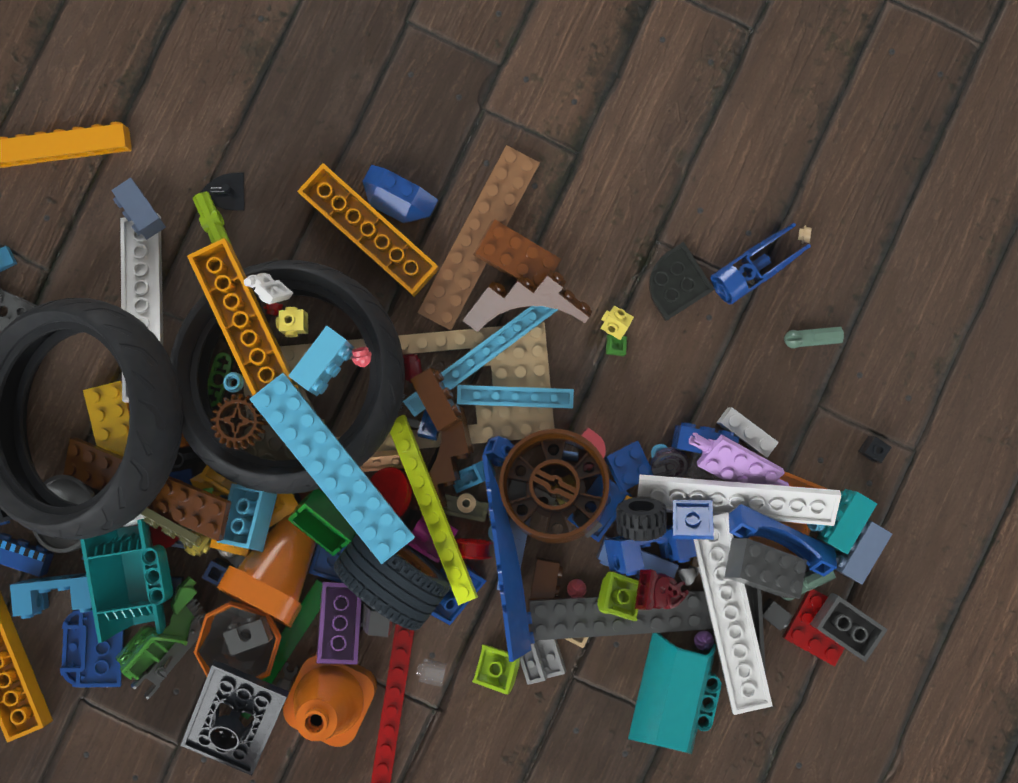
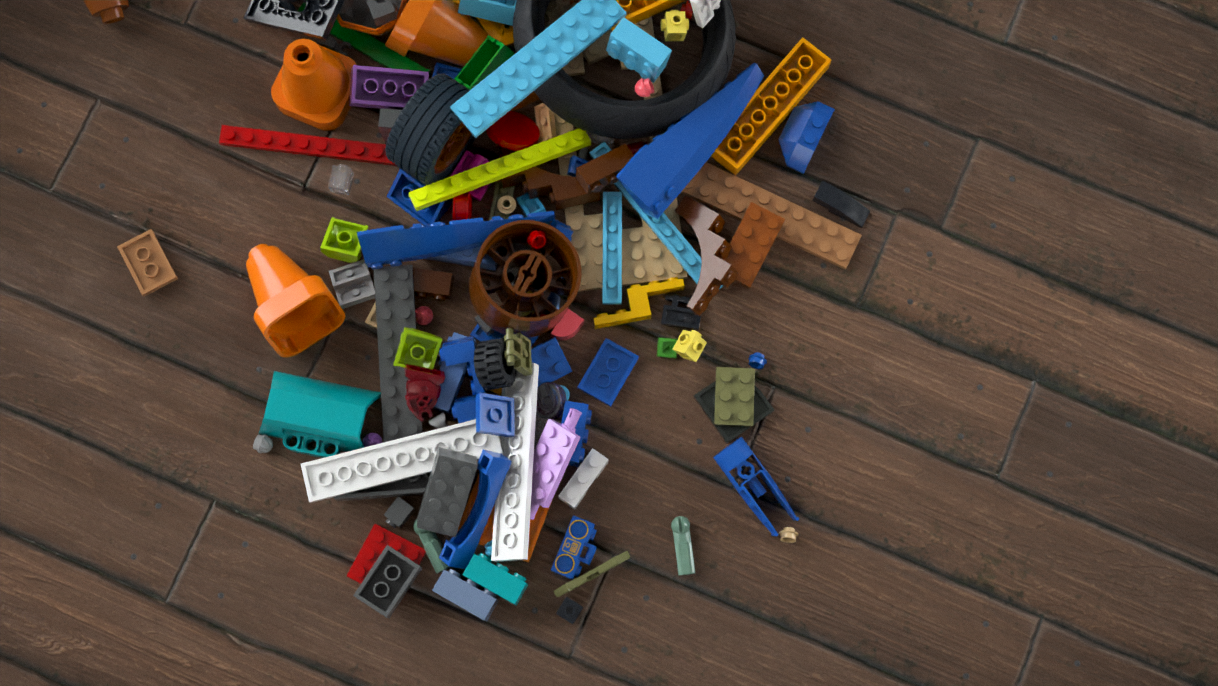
camera: 90 degrees right, 10 degrees down
(436, 335) = (674, 158): none -> blue wedge
(474, 163) = (841, 204): none -> black slope
(516, 473) = (539, 242): none -> red plate
(563, 728) = (291, 305): none -> orange cone
(570, 372) = (638, 303): none -> yellow bracket
(584, 334) = (678, 316): none -> black plate
(630, 495) = (518, 352): none -> olive plate
(632, 256) = (757, 360): none -> blue plate
(640, 404) = (608, 372): none -> blue plate
(670, 280) = (734, 396): none -> olive plate
(702, 749) = (263, 444): none -> light grey plate
(820, 448) = (568, 556): none -> blue piece
(834, 414) = (610, 564): none -> olive tile

